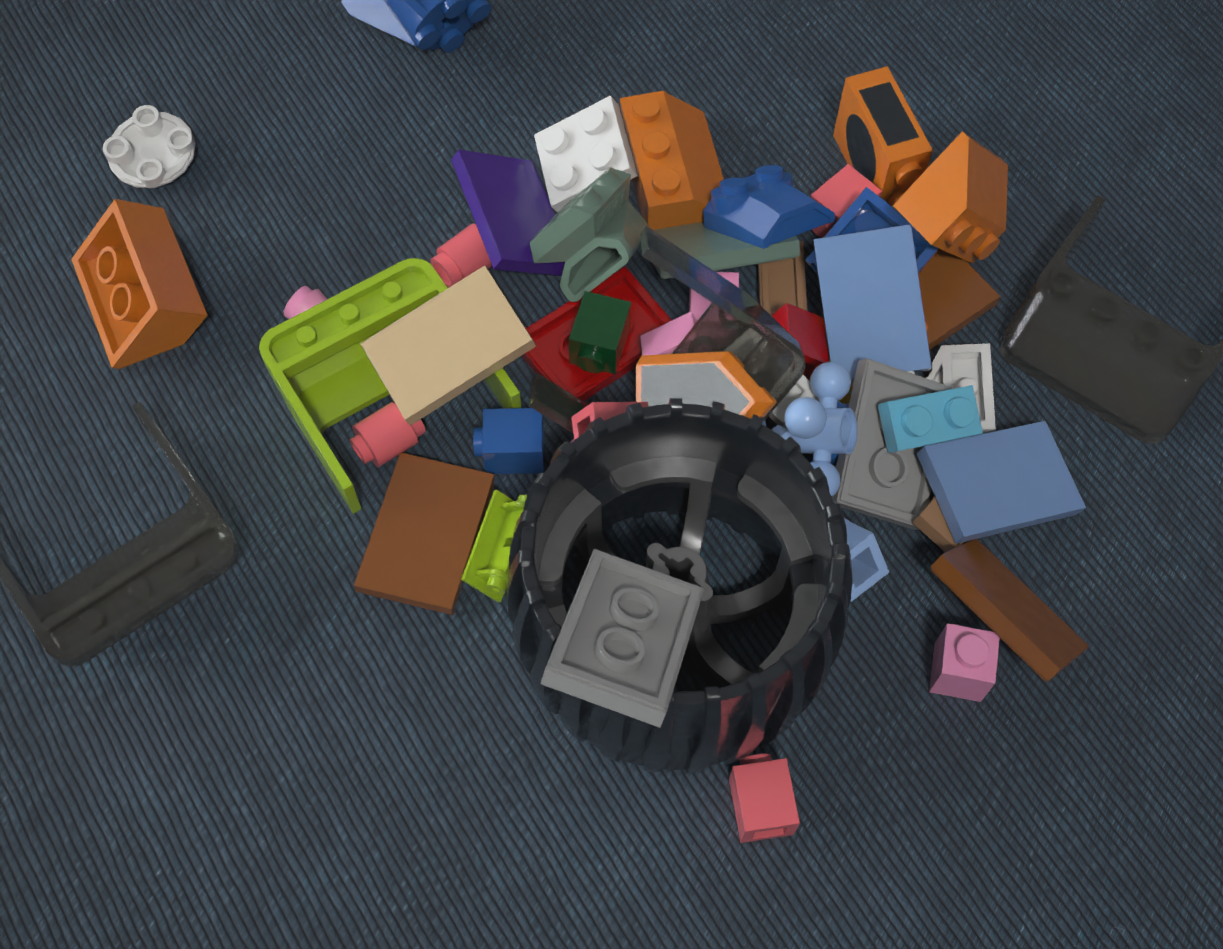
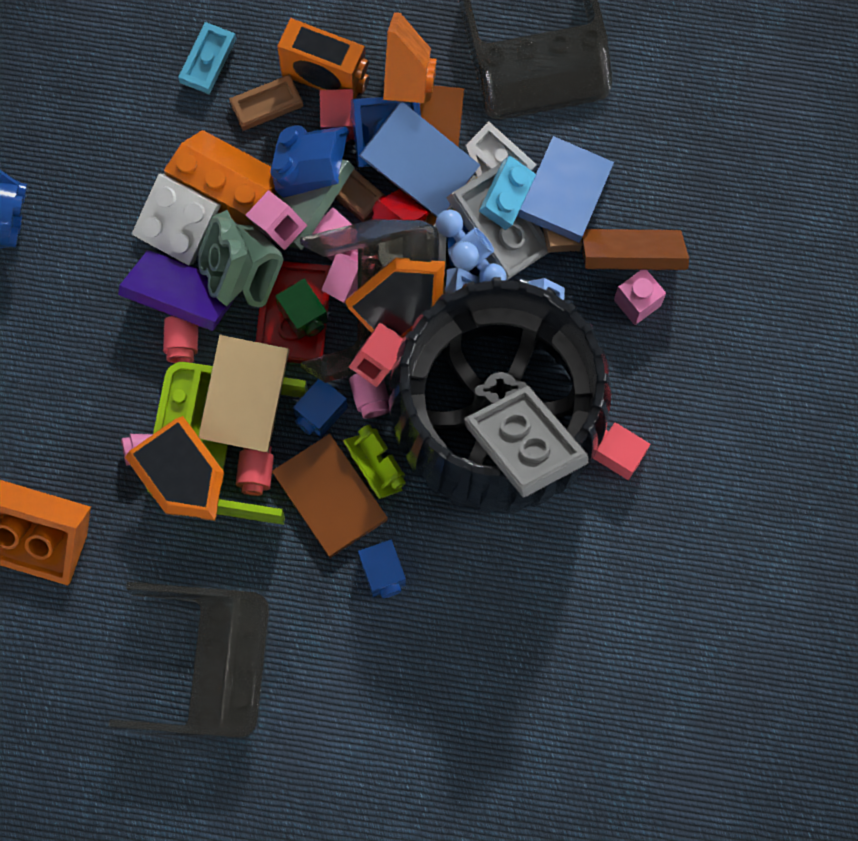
camera: 50 degrees left, 10 degrees up
(305, 352) = (179, 471): none -> black tile
(384, 651) = (382, 569): none -> blue brick
(669, 217) = (276, 220): none -> bright pink brick
(778, 57) = (207, 58): none -> medium azure plate
(790, 141) = (266, 102): none -> medium nougat tile

